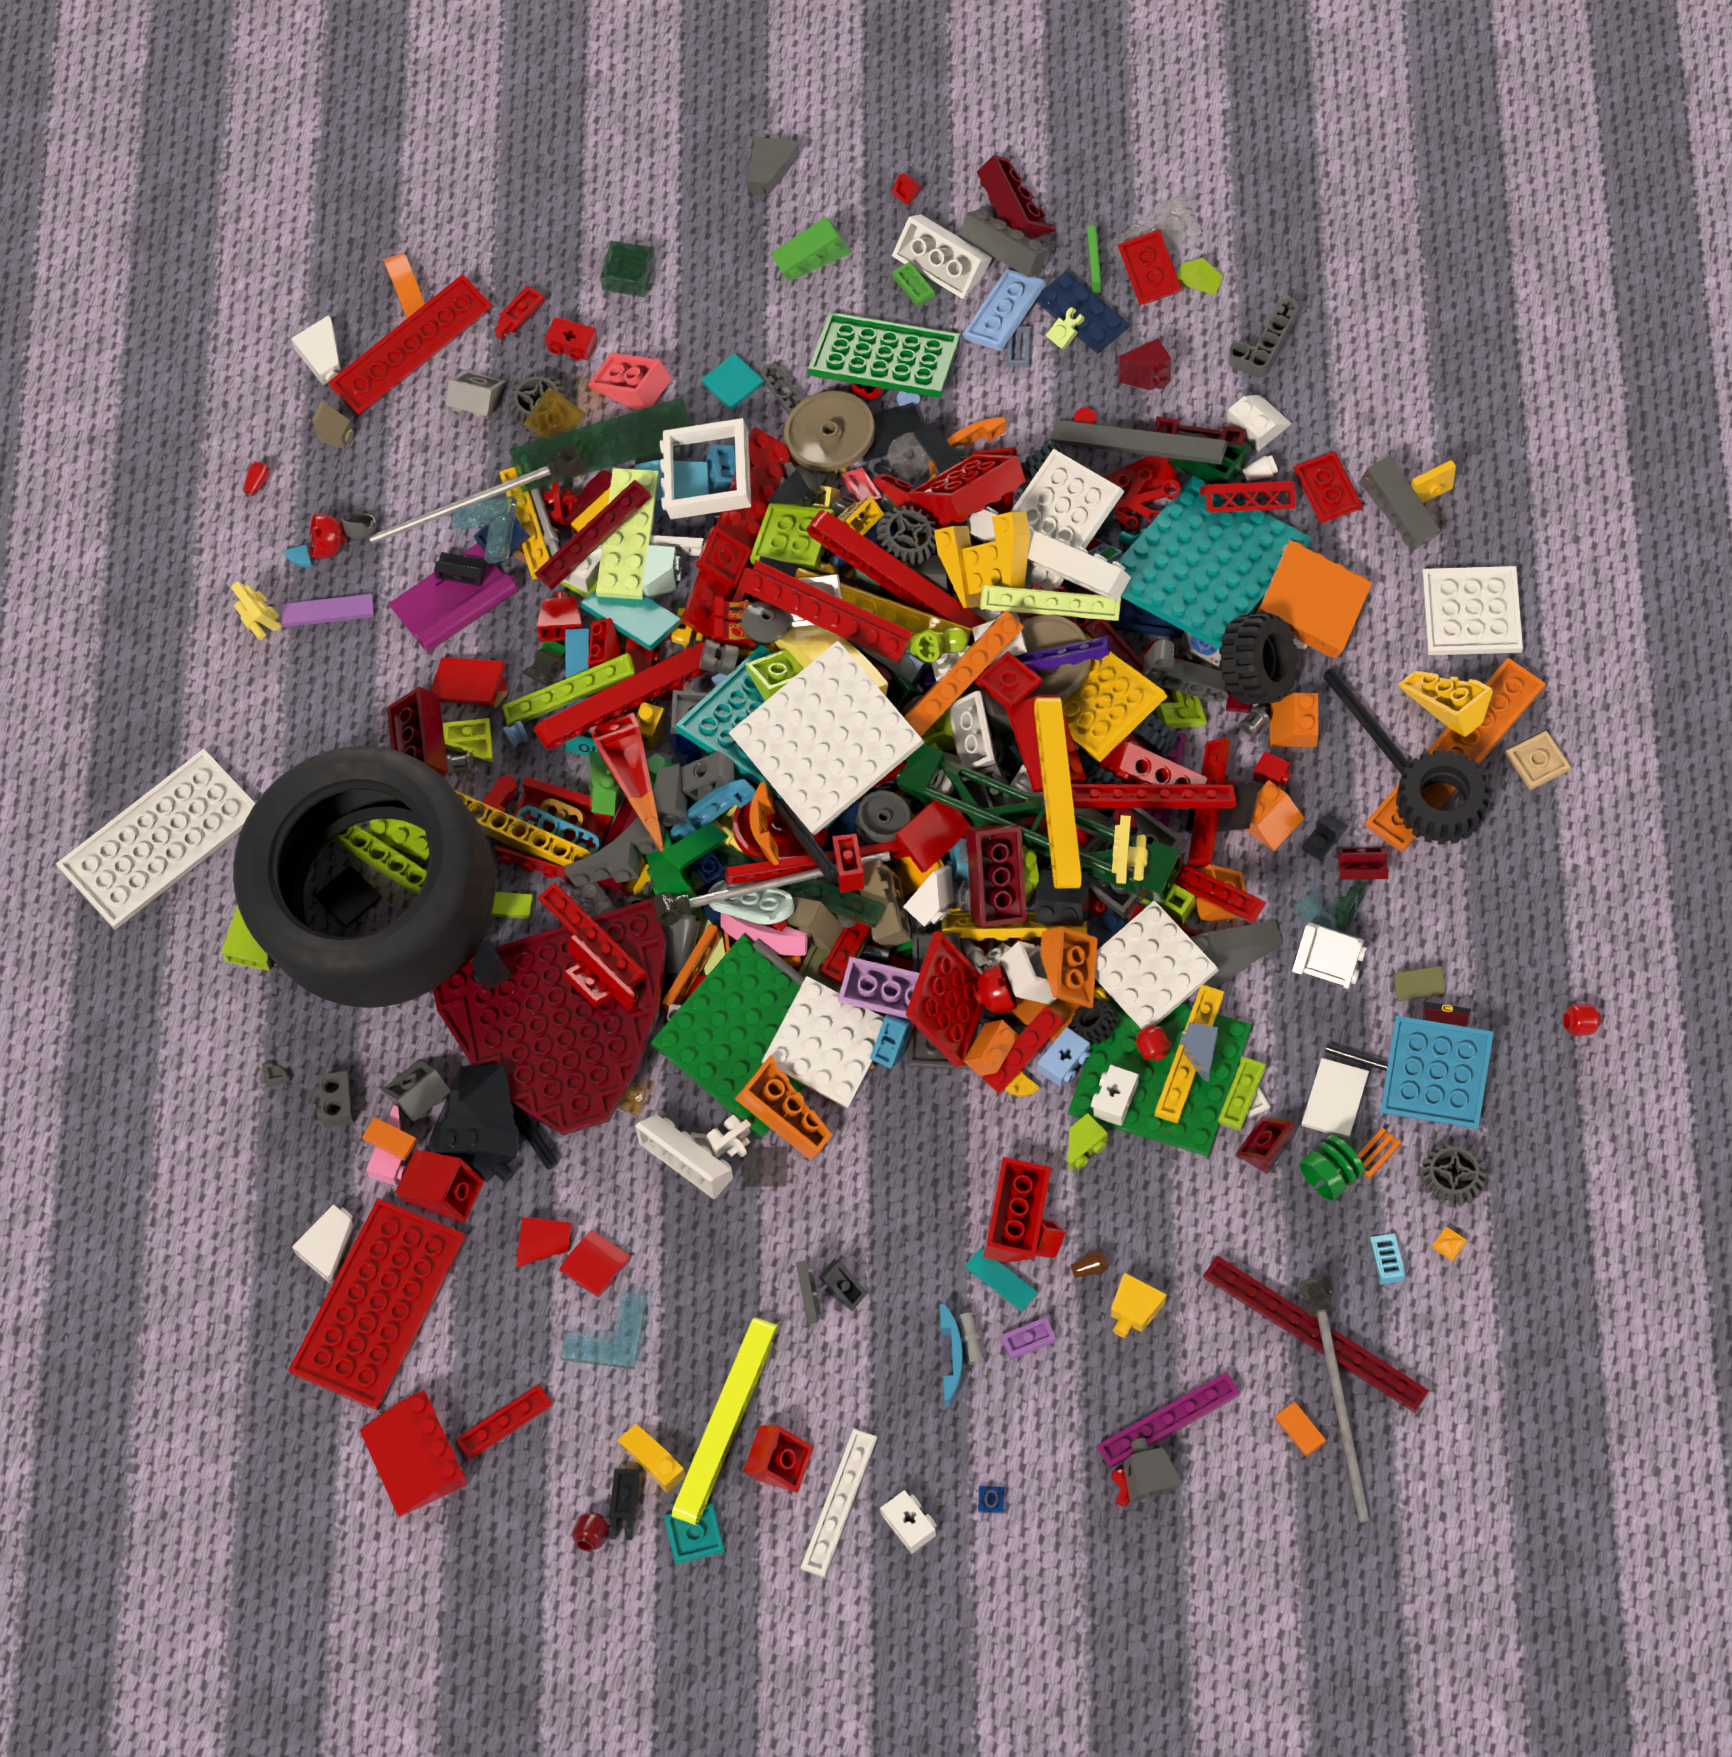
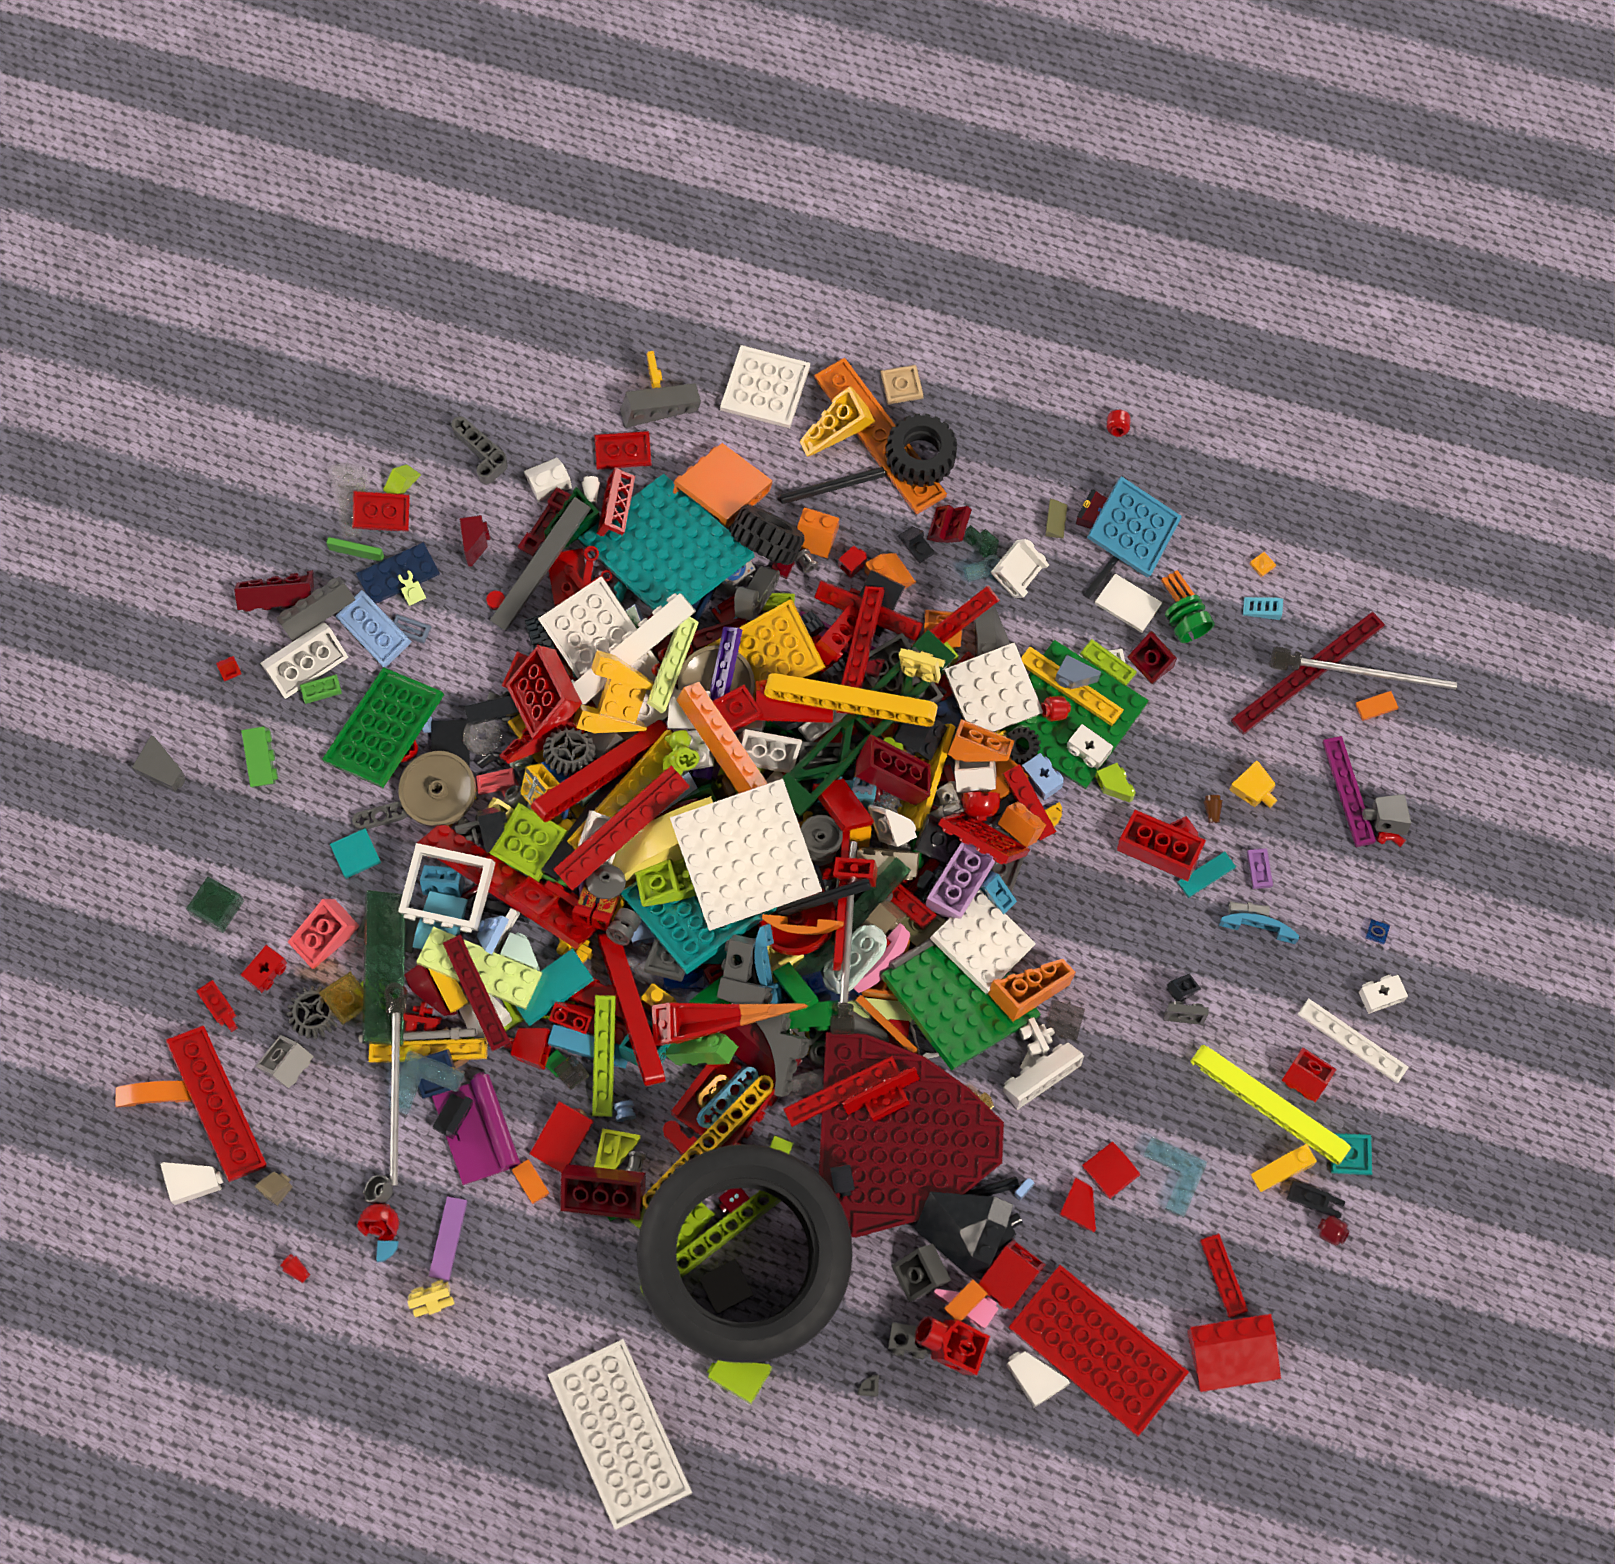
camera: 80 degrees left, 5 degrees up
(337, 1138) = (953, 1344): none -> red brick
(412, 669) = (530, 1181): none -> orange tile
(543, 1172) = (1024, 1188): none -> light blue tile
(675, 529) = (491, 931): none -> light blue wing
(986, 428) = (480, 673): orange slope -> none
(1444, 1173) = (1228, 550): dark grey gear -> none

